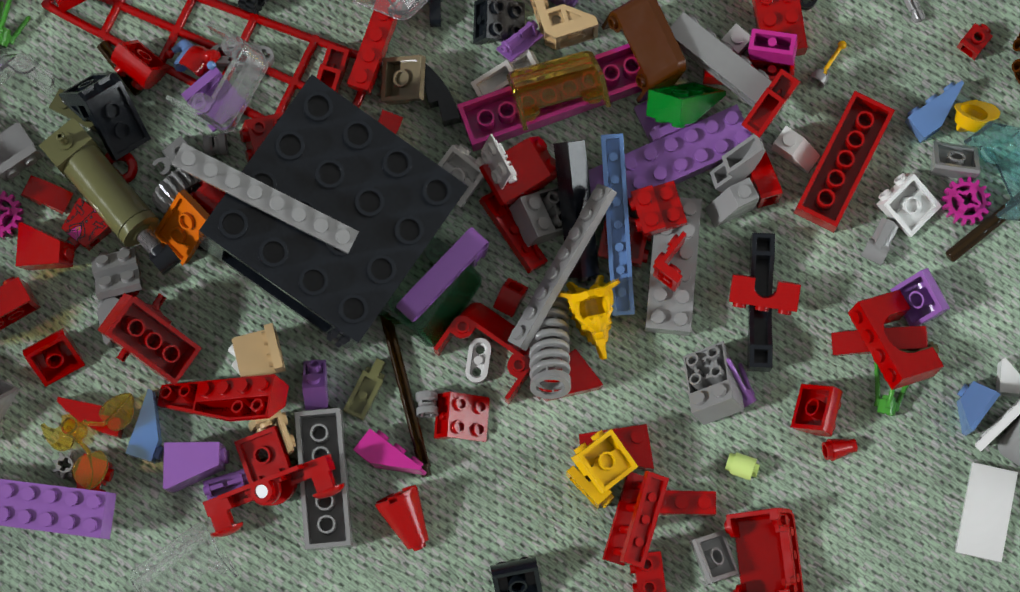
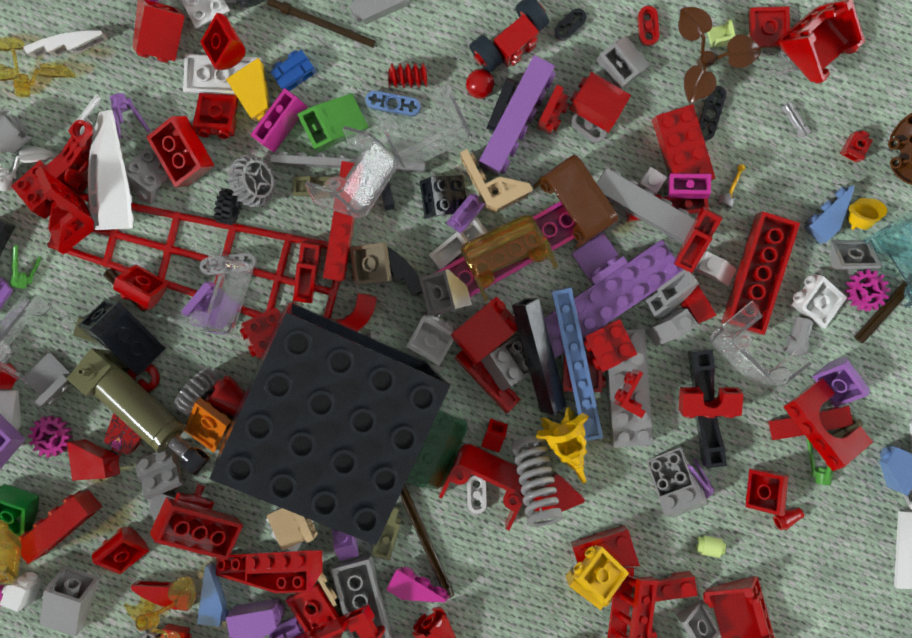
camera: 10 degrees left, 10 degrees up
(47, 193) = (86, 411): red slope -> none
(170, 153) = (186, 367): light grey brick -> none
(194, 57) = (186, 276): red piece -> none
(215, 144) = (221, 345): light grey wheel -> none
(265, 198) = (262, 441): light grey plate -> none
(427, 404) = (440, 543): light grey wheel -> none
(462, 416) = (470, 544): red bracket -> none
(464, 252) = (439, 434): medium lavender beam -> none
(479, 117) = (444, 292): none -> light grey slope
(495, 157) = (460, 325): white hinge -> none
(562, 266) = (537, 412): light grey plate -> none
(682, 102) = (616, 246): green slope -> none
(793, 230) = (733, 340): none -> clear windscreen

